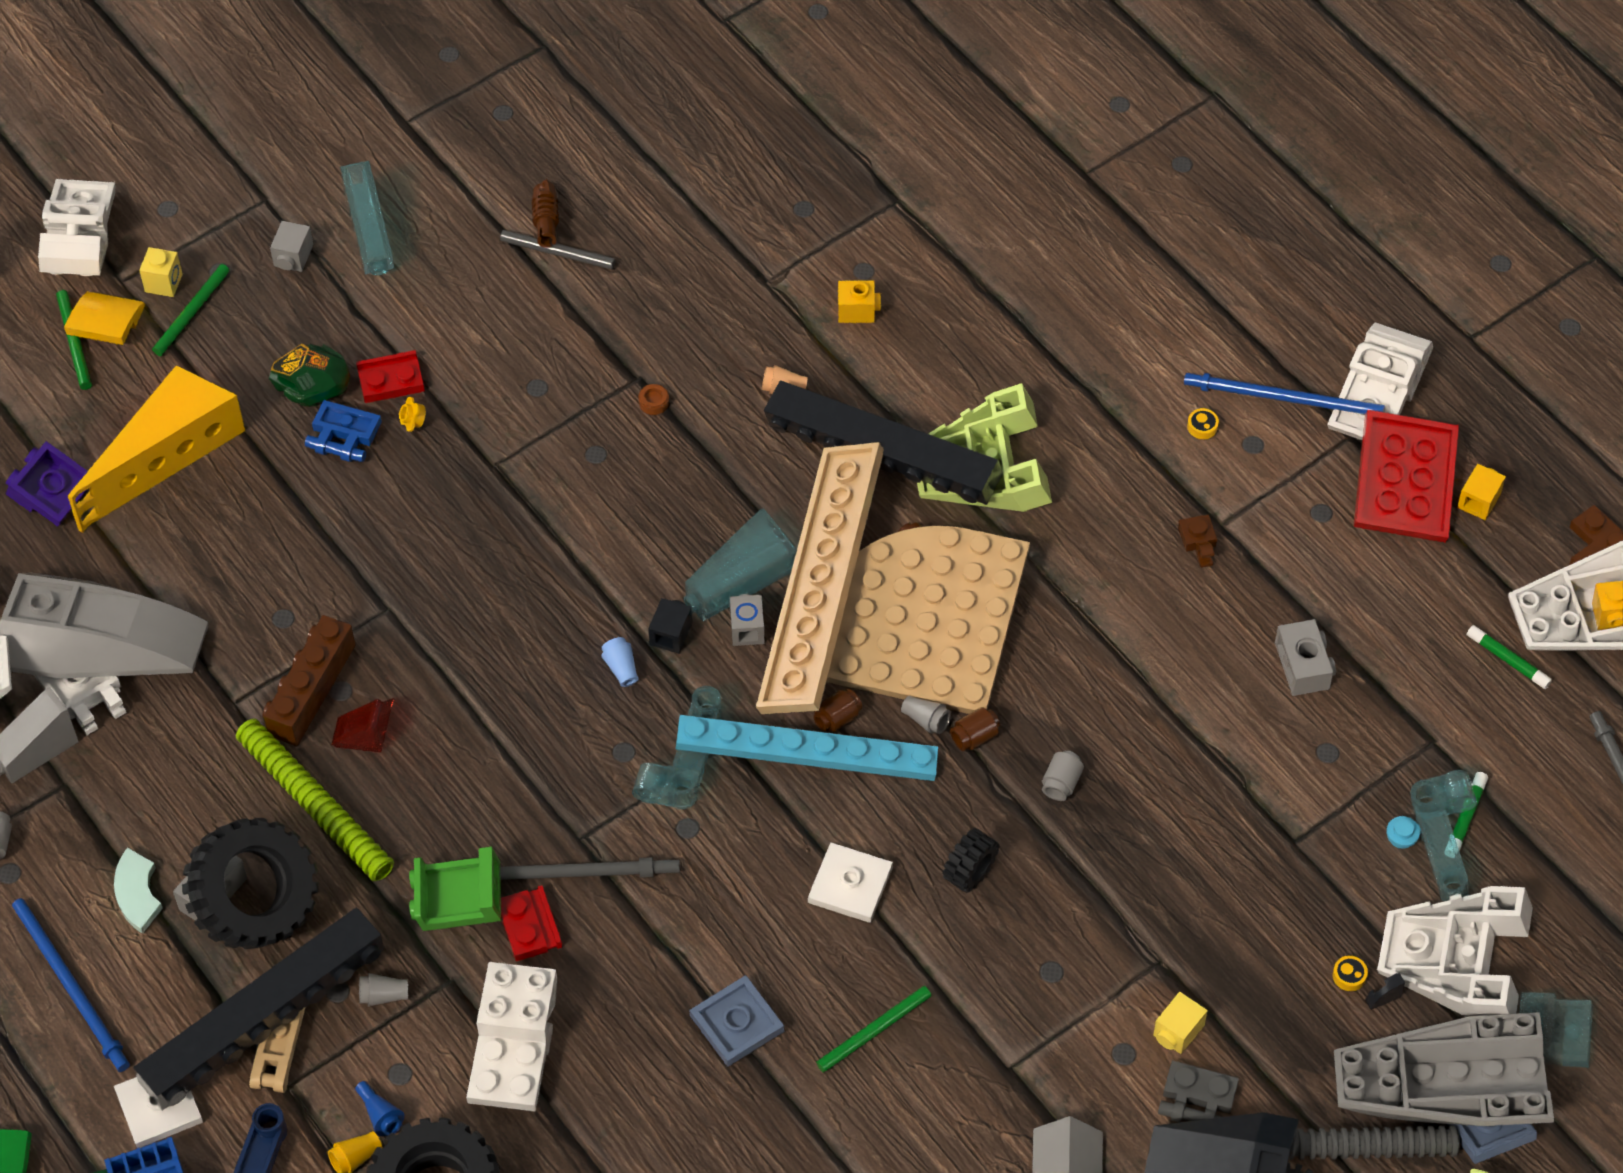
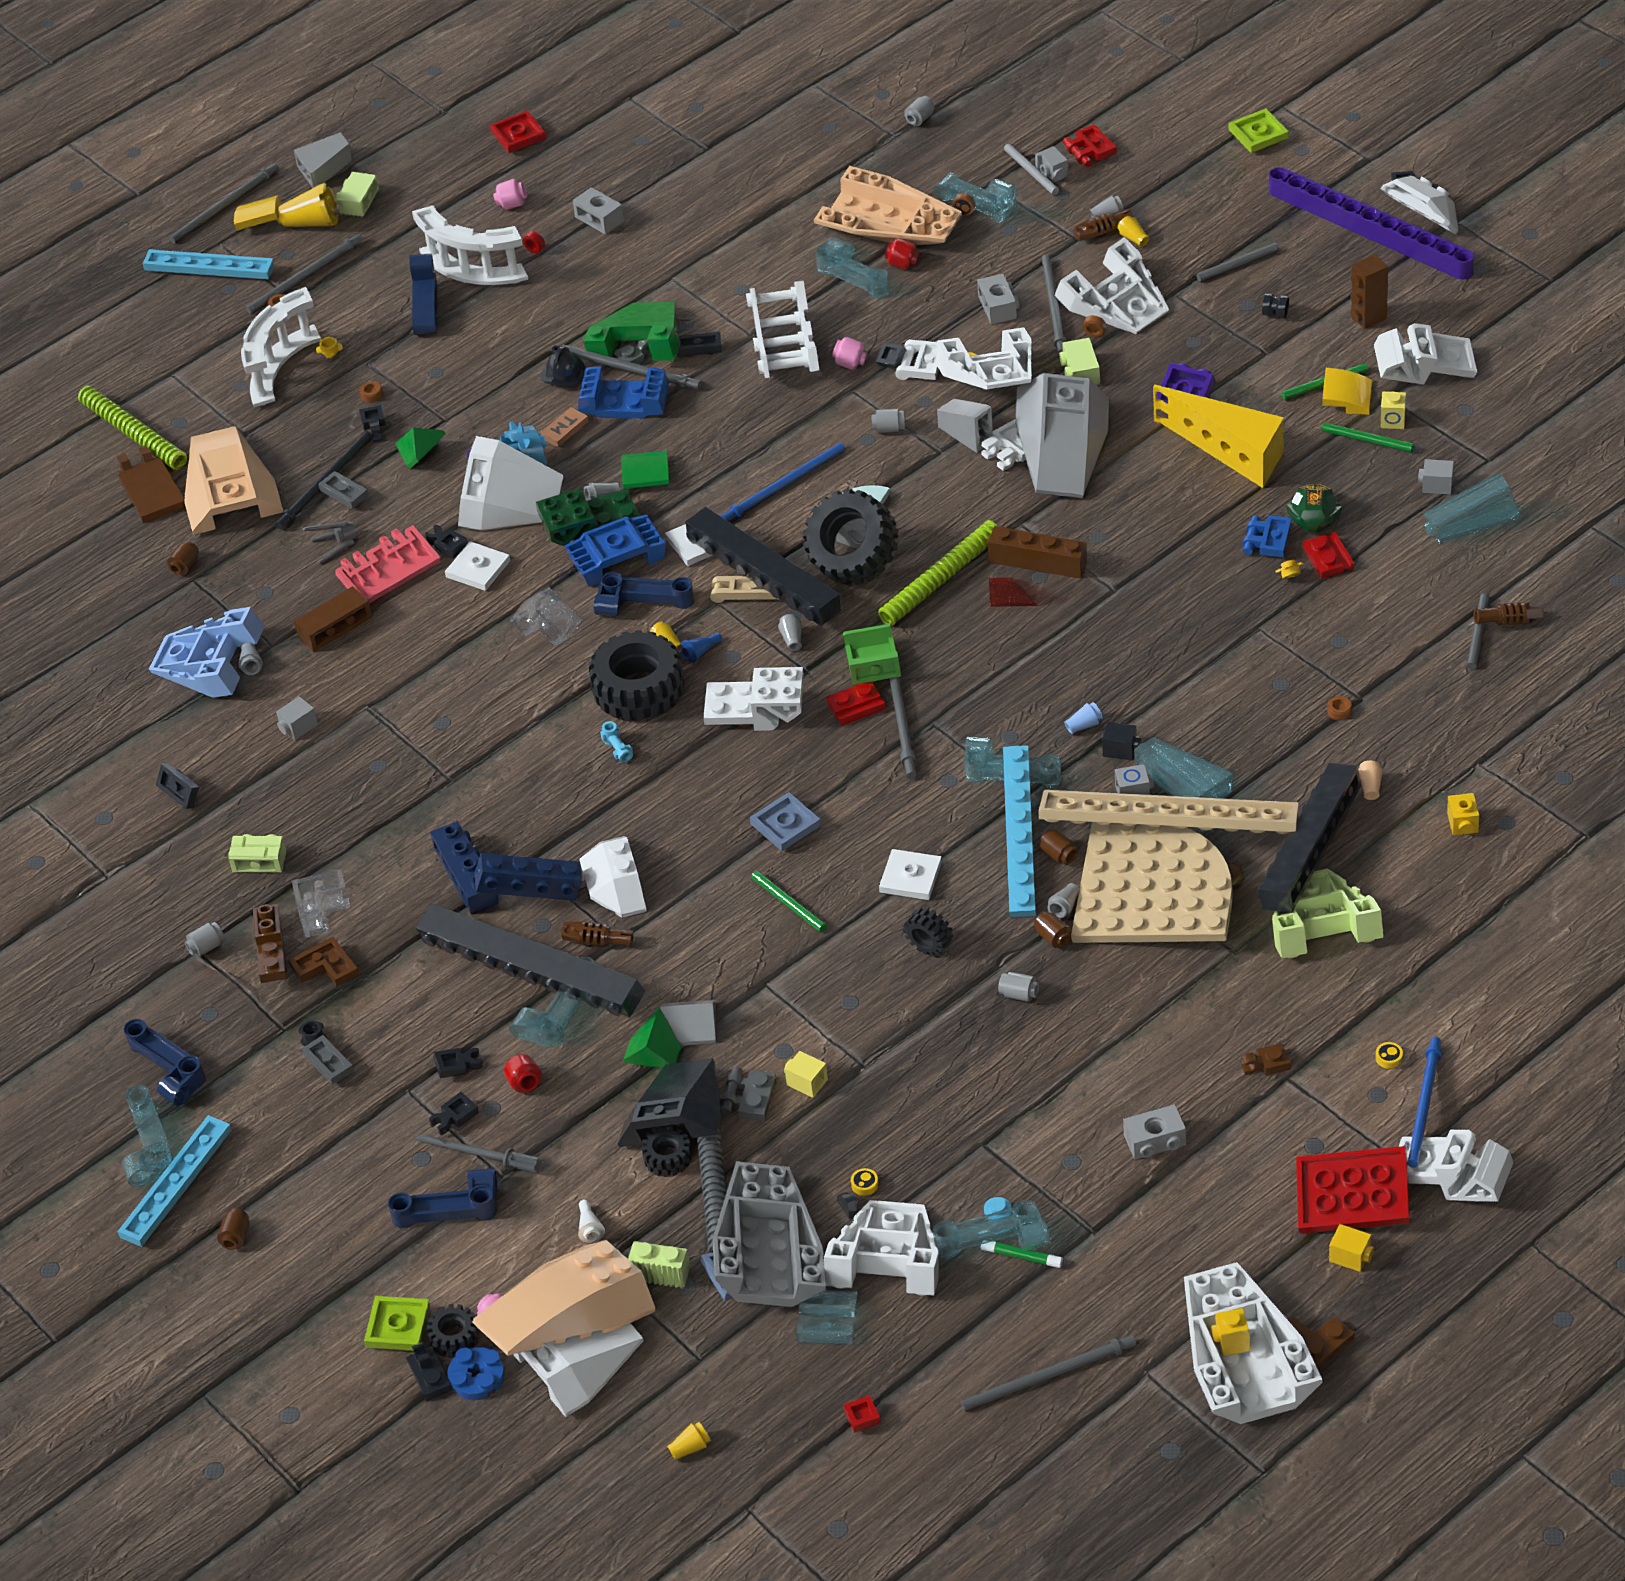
camera: 90 degrees right, 10 degrees down
(1509, 657) = (1178, 1284): green bar -> none

